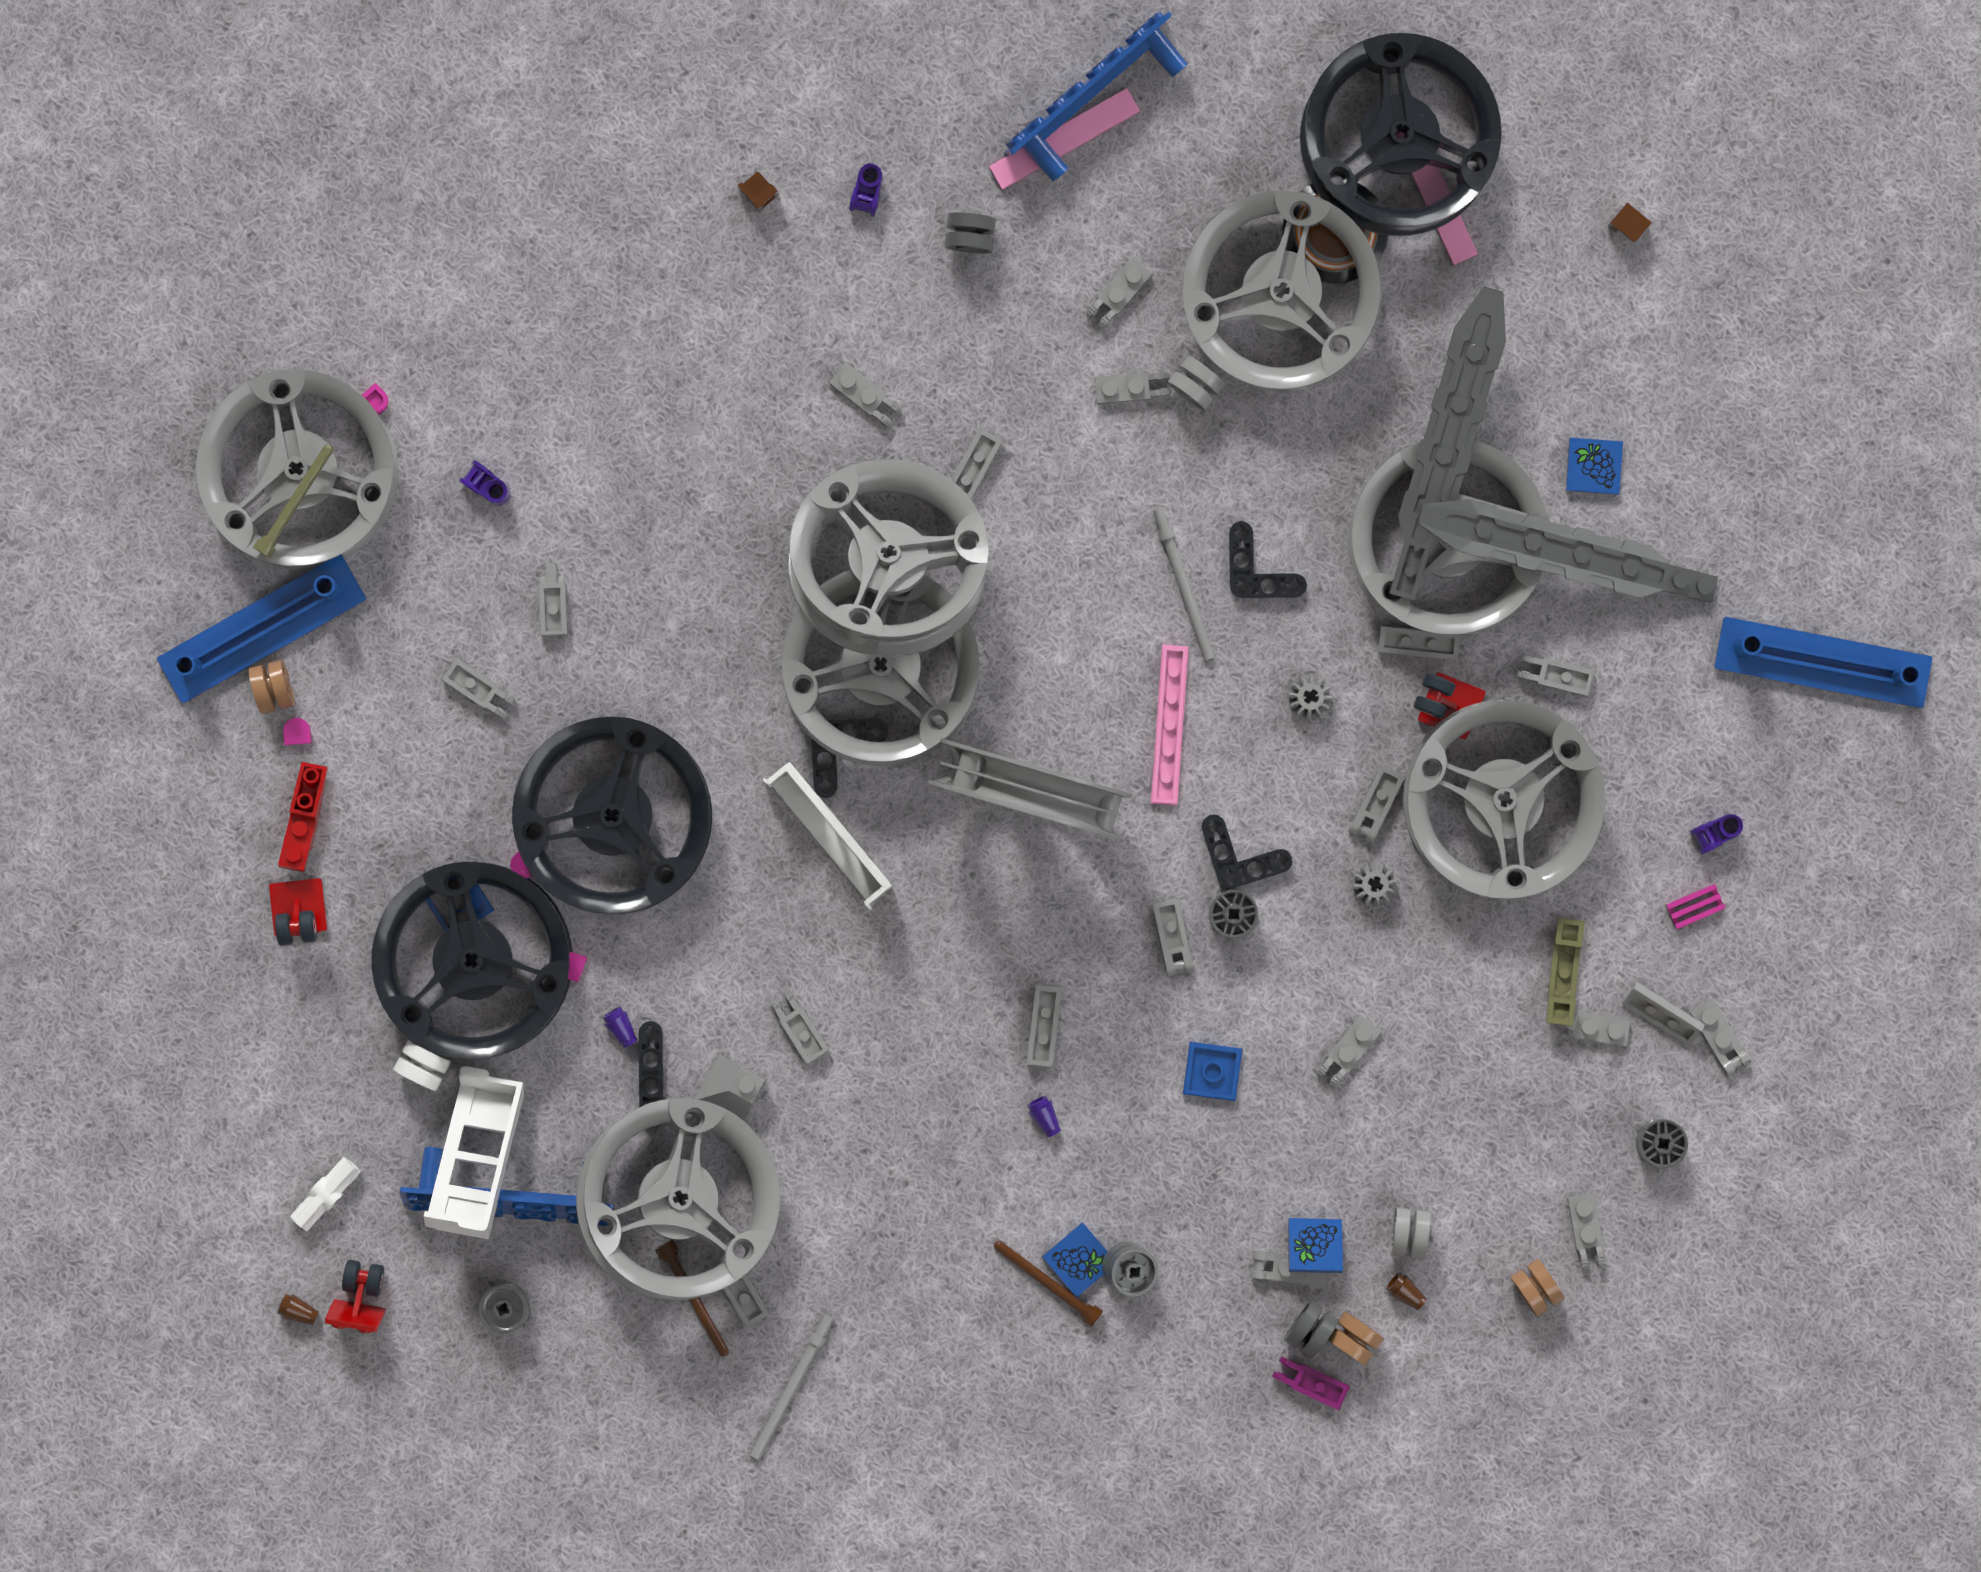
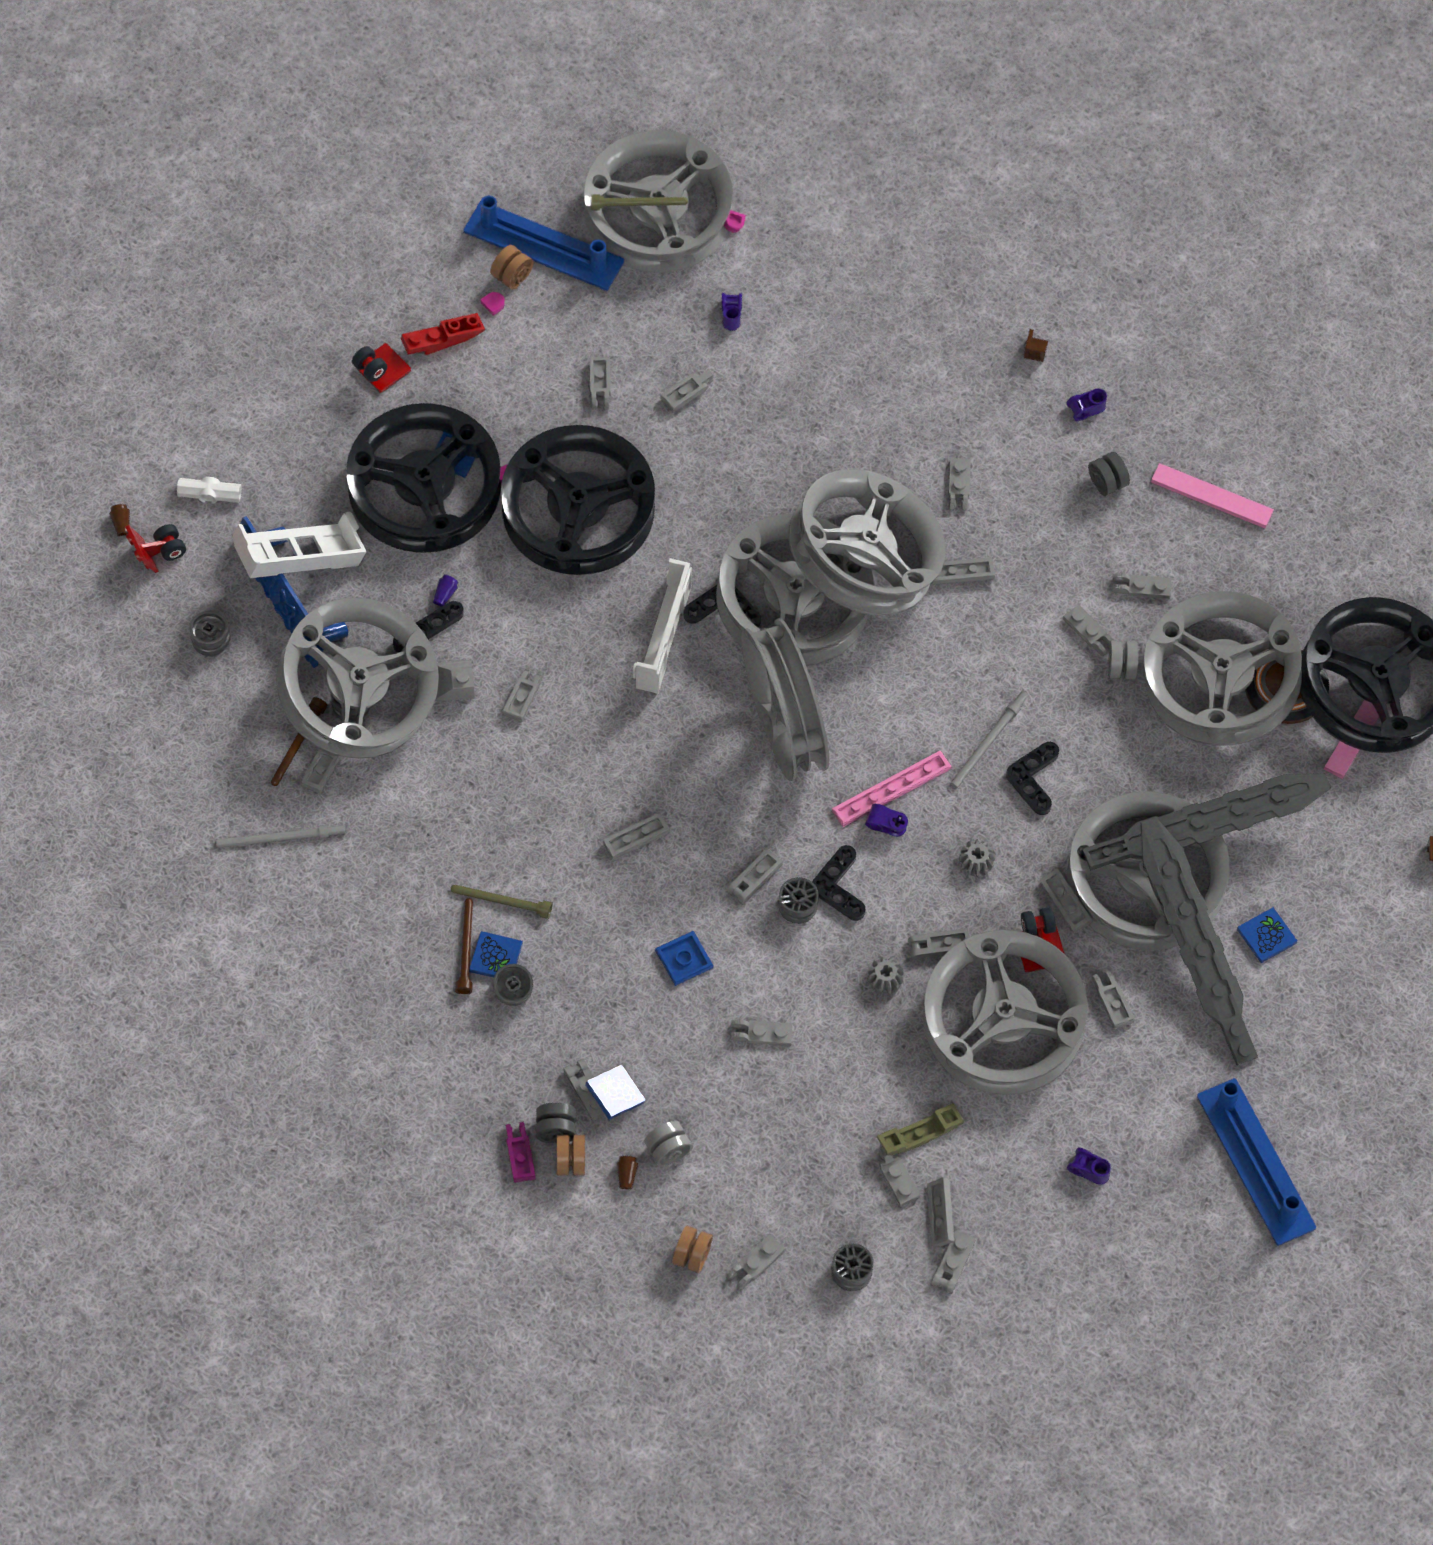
camera: 45 degrees right, 25 degrees down
(421, 1065) = (334, 490): white wheel -> none
(576, 966) = (463, 541): dark pink tile -> none
(1044, 1115) = (576, 873): dark purple cone -> none
(1059, 1178) = (541, 908): none -> olive piece
(1144, 38) = (1265, 483): blue piece -> none
(1202, 762) = (884, 820): none -> dark purple piece
(1716, 897) = (1017, 1172): dark pink tile -> none

